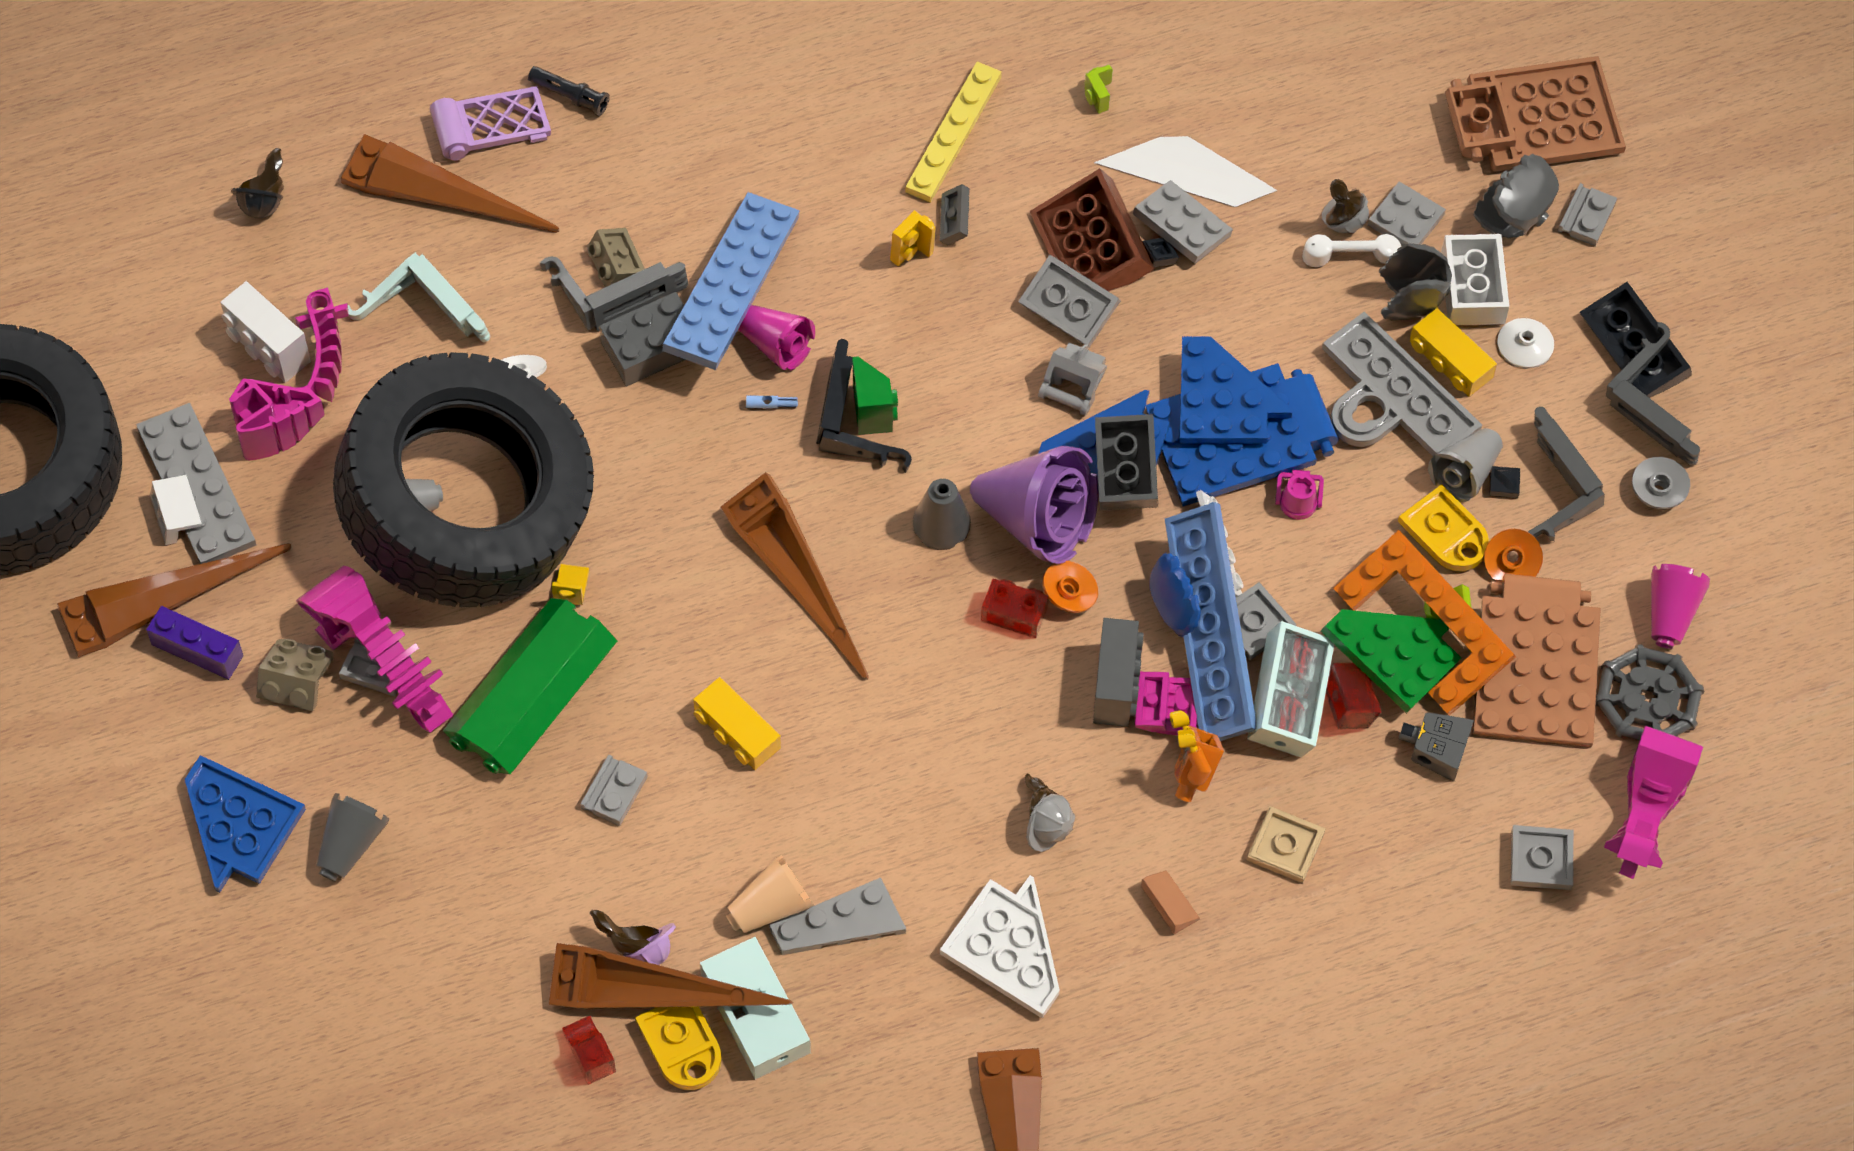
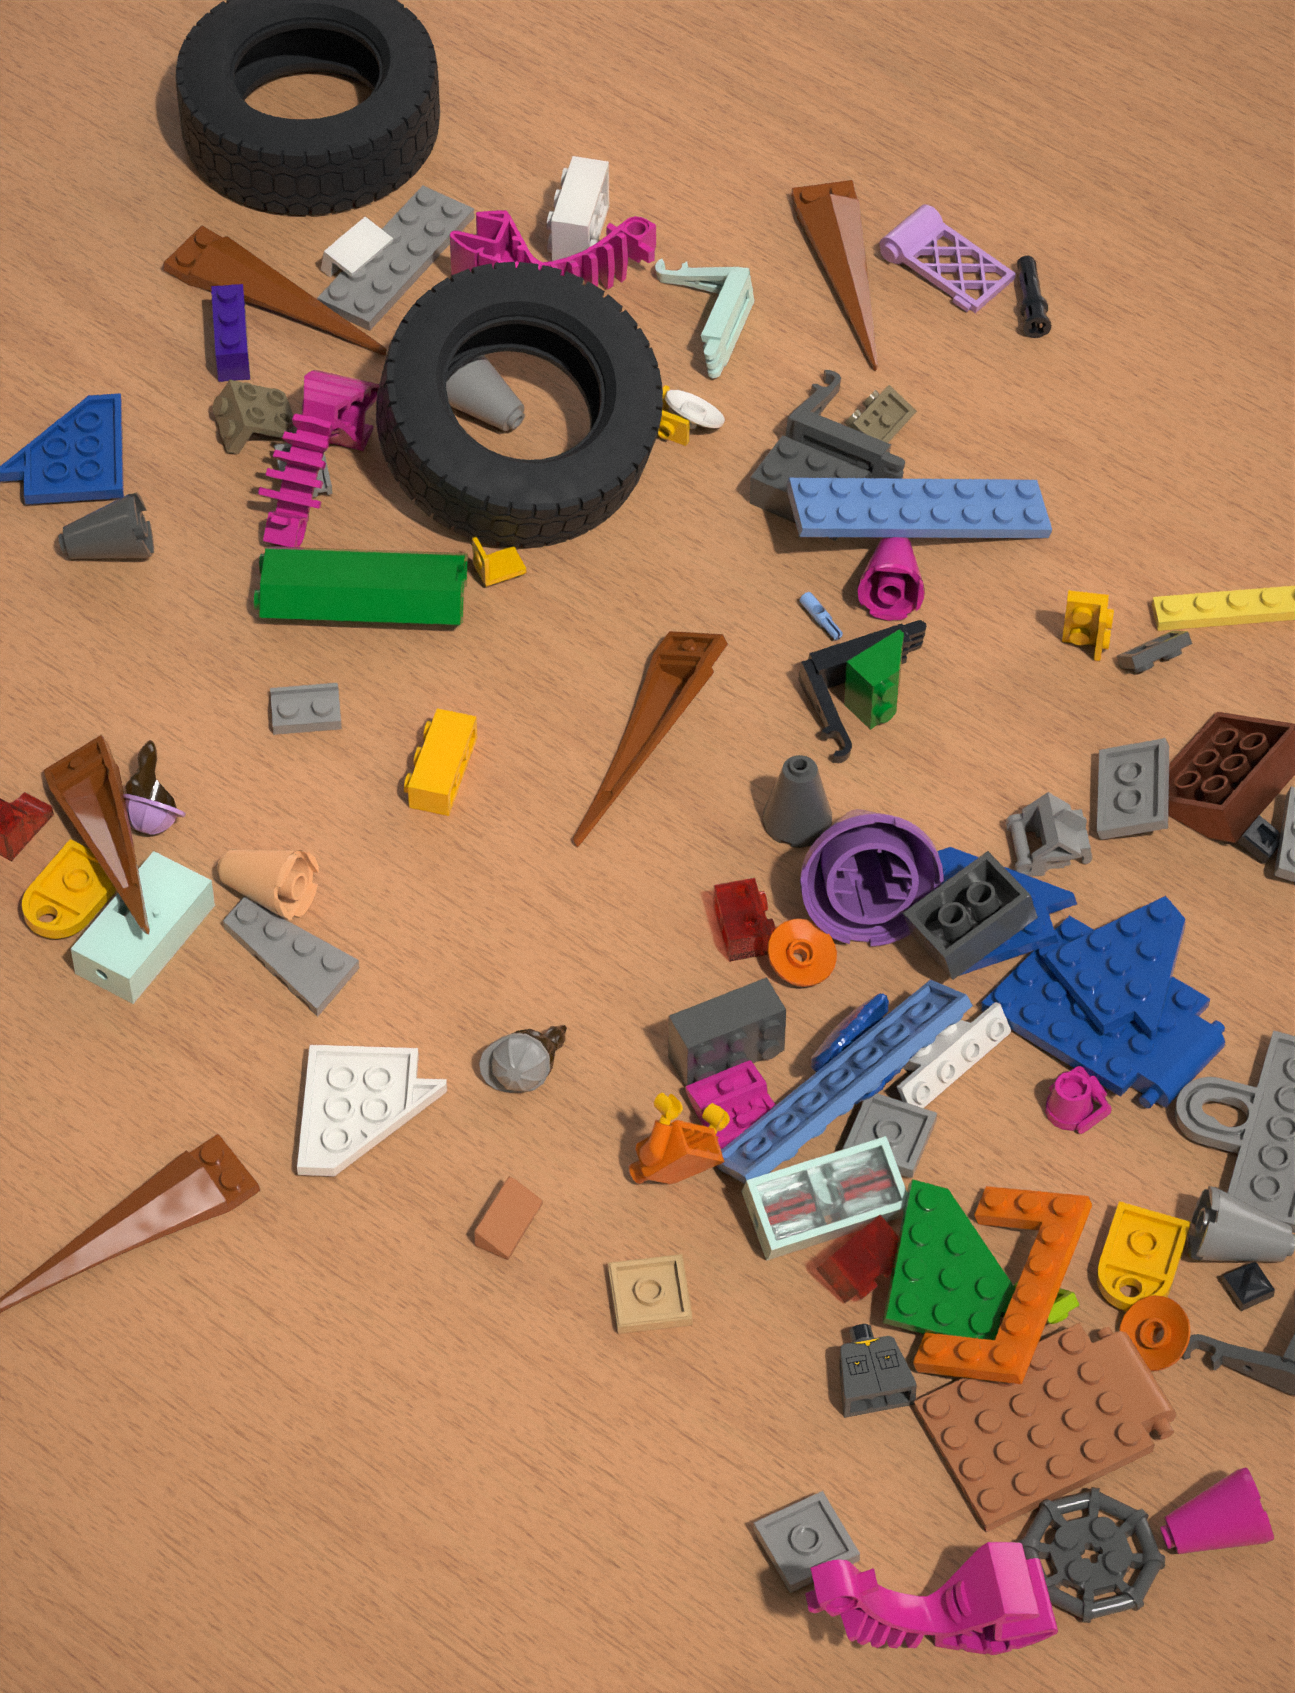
camera: 60 degrees right, 10 degrees down
(262, 194) = (724, 144): piece -> none

